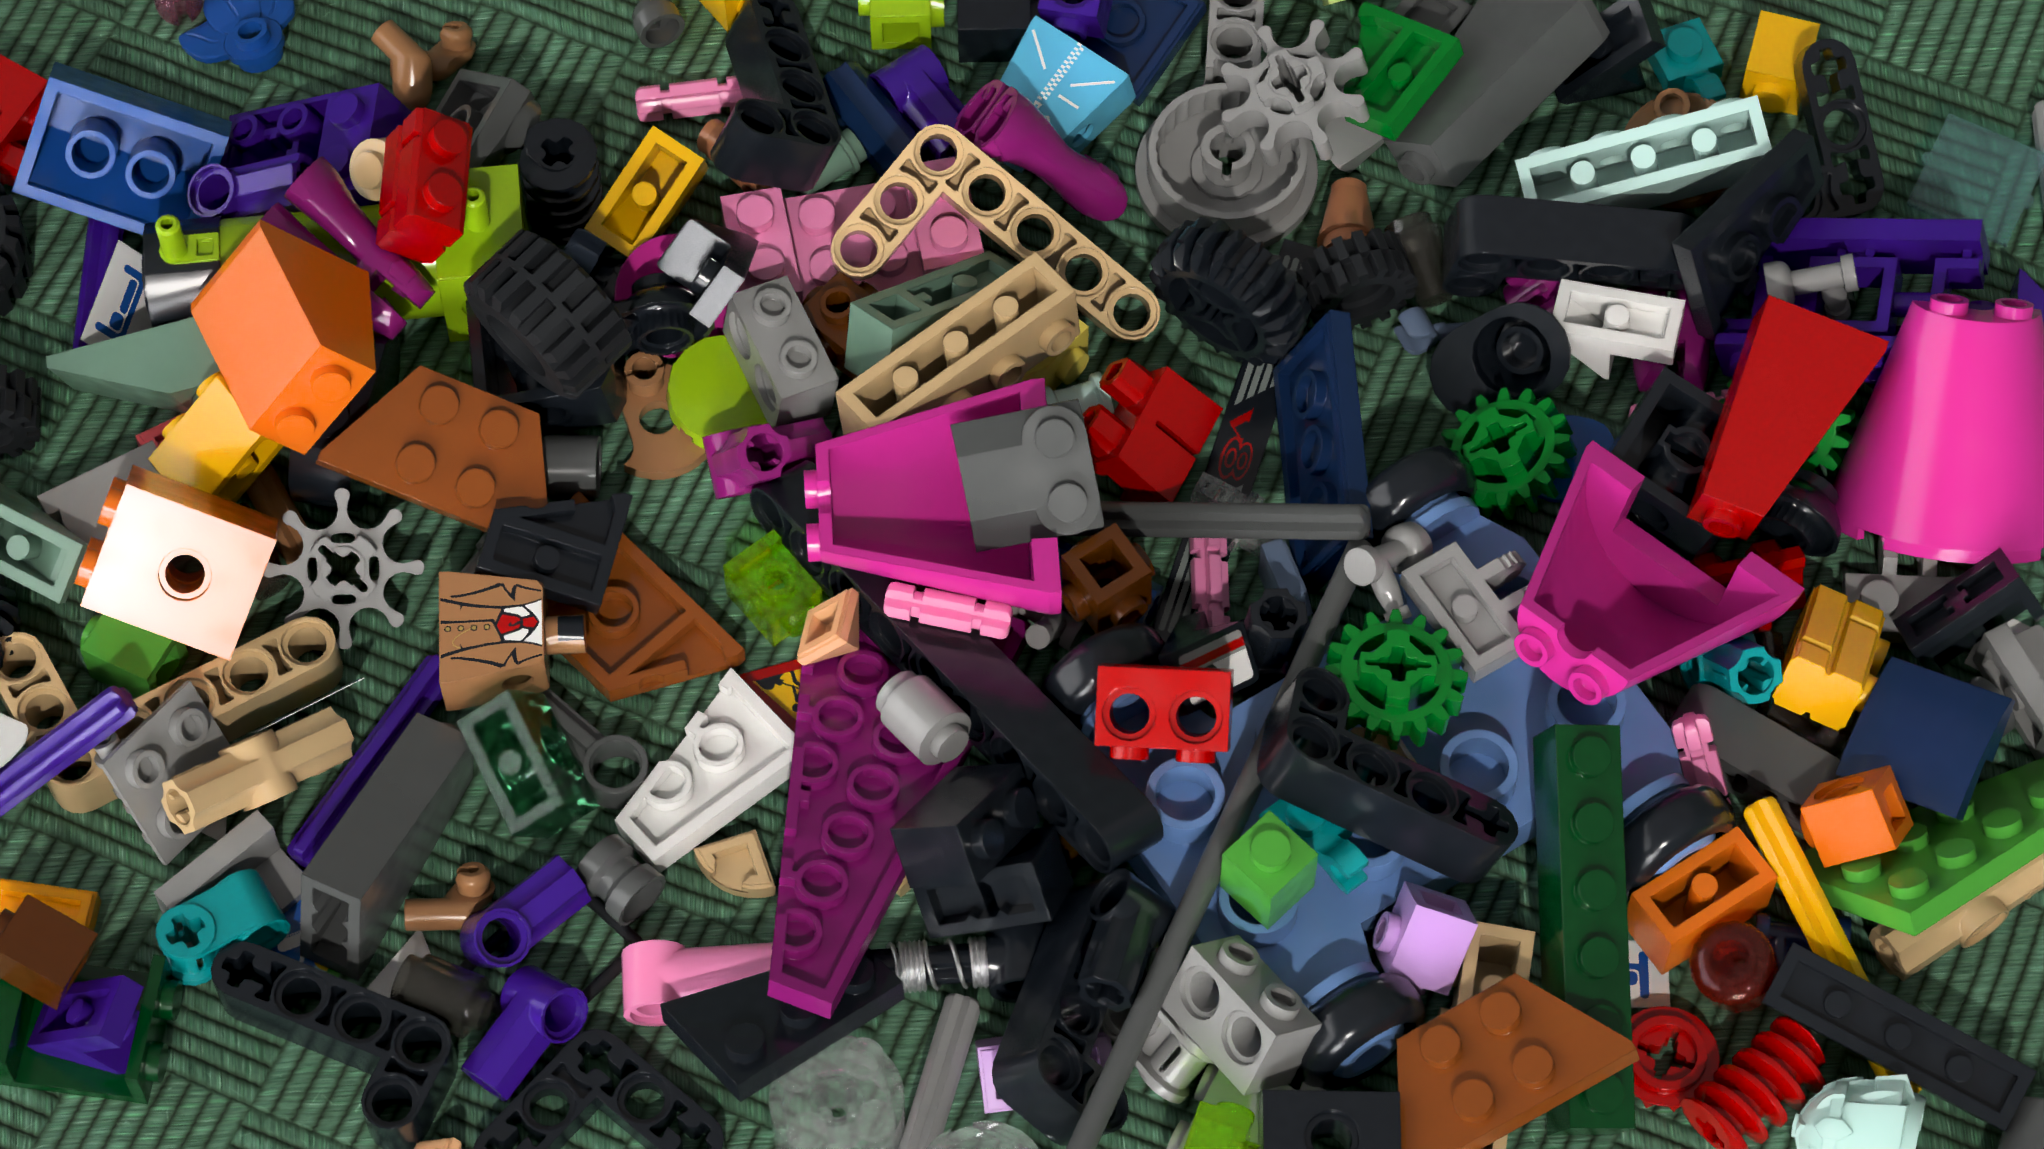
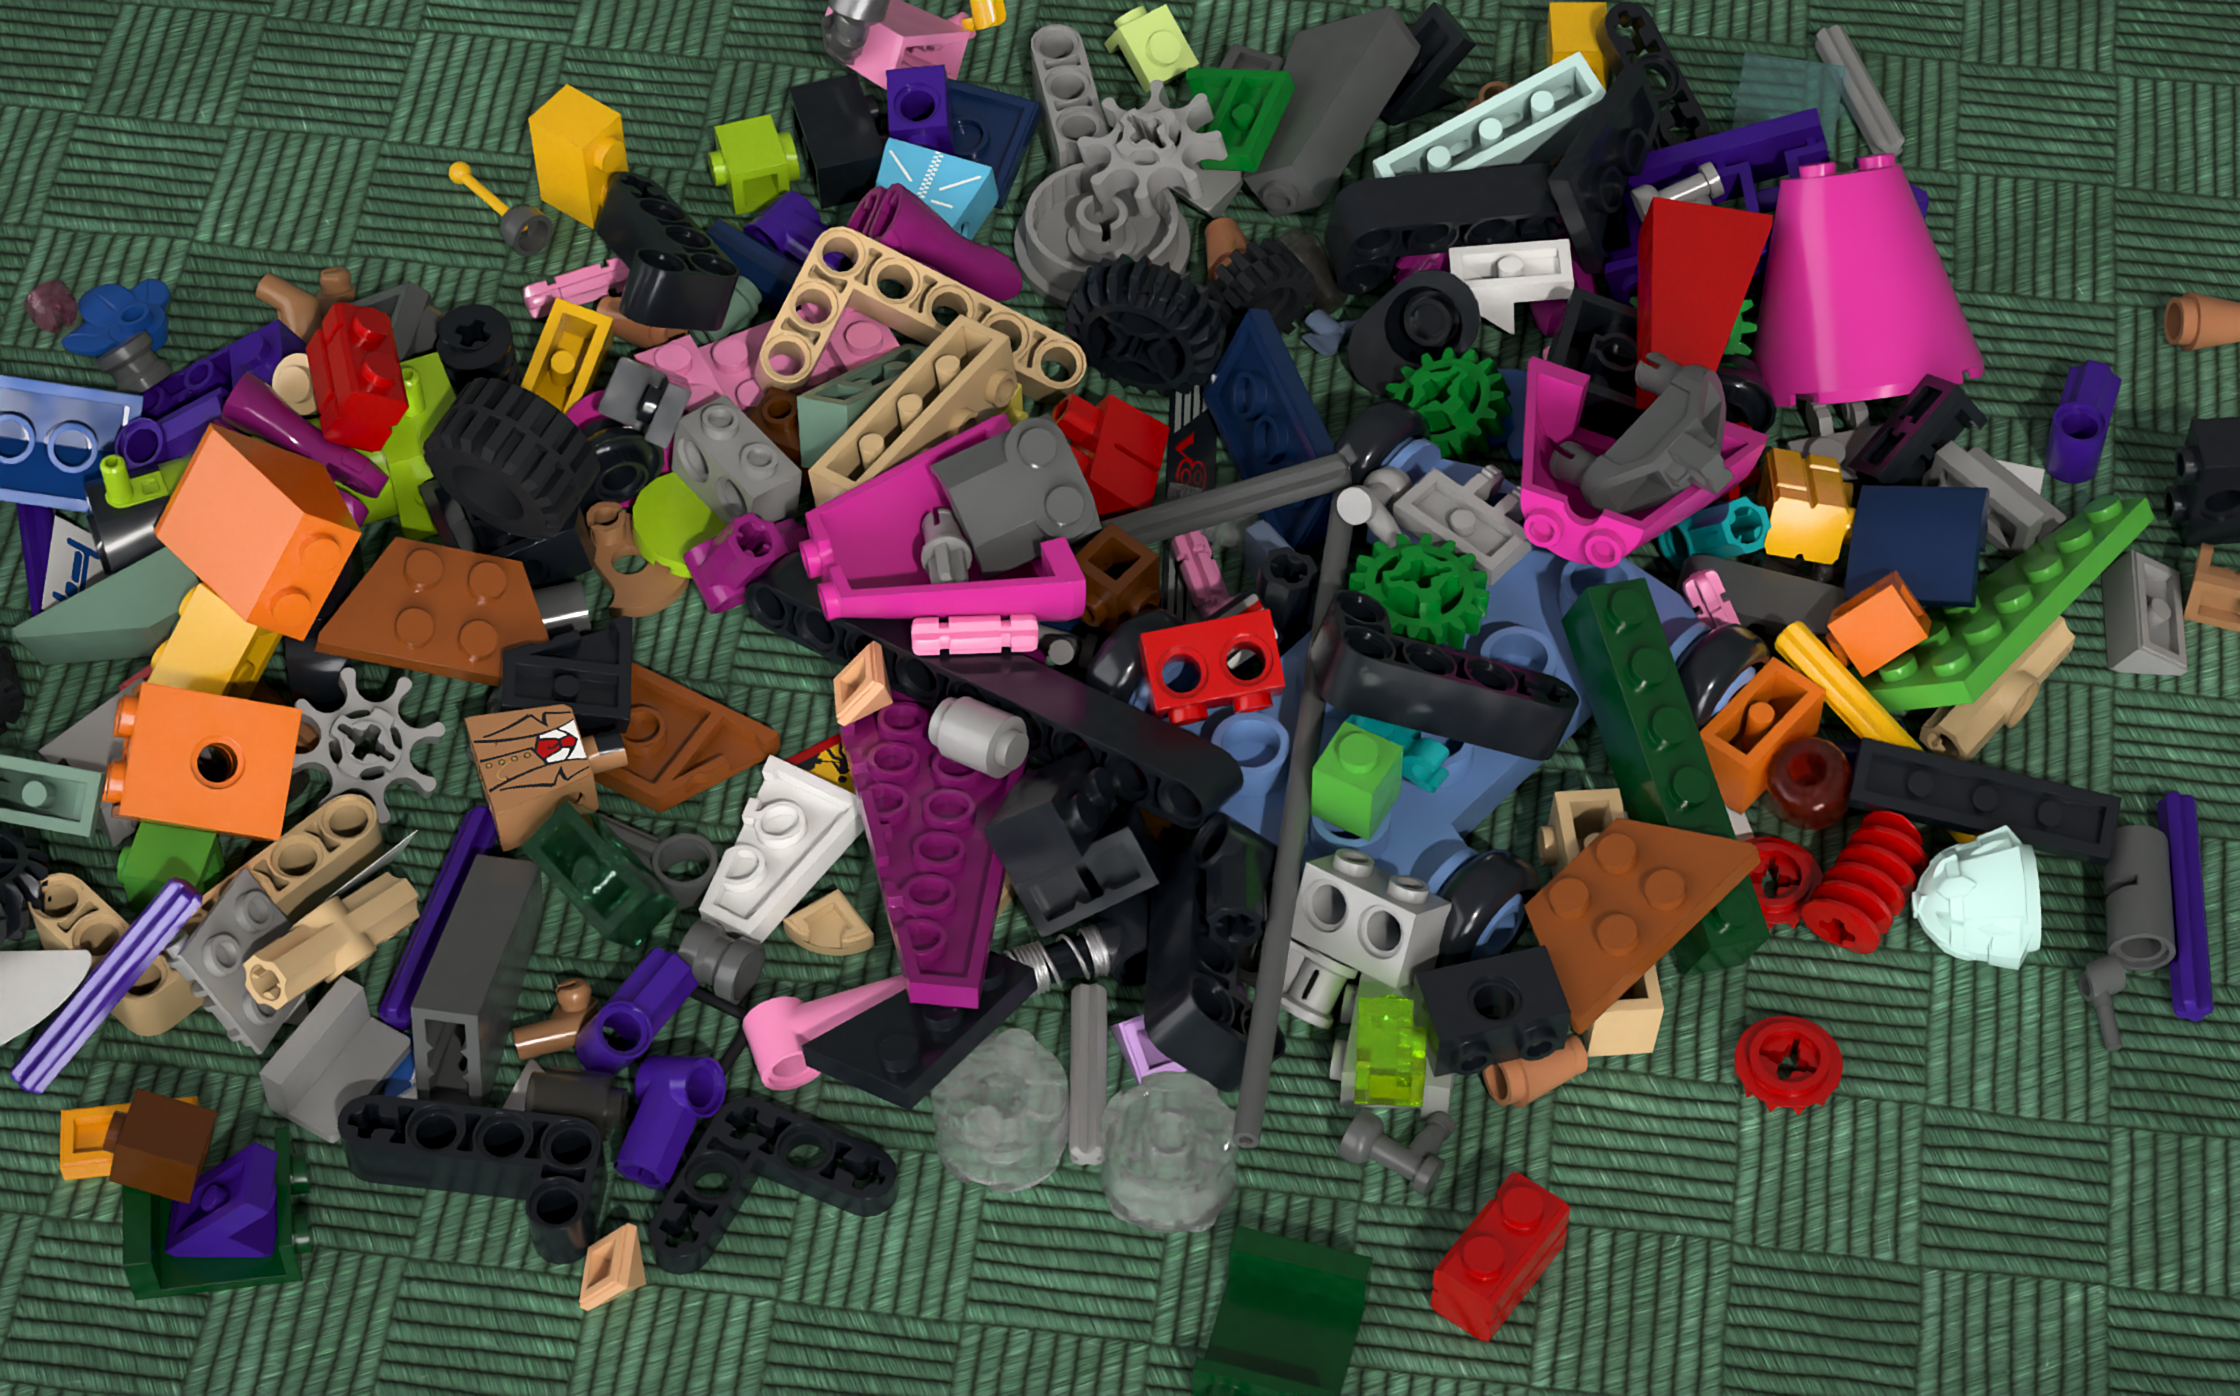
camera: 15 degrees left, 10 degrees down
(228, 913) = (328, 1082): teal piece -> none
(237, 88) = (134, 364): none -> dark grey wheel
(751, 586) = (788, 677): clear neon green brick -> none
(943, 518) = (945, 551): none -> light grey axle
(1425, 937) = (1517, 817): lavender brick -> none
(1682, 589) = (1663, 450): none -> dark grey connector
(1689, 61) = (1492, 61): teal plate -> none

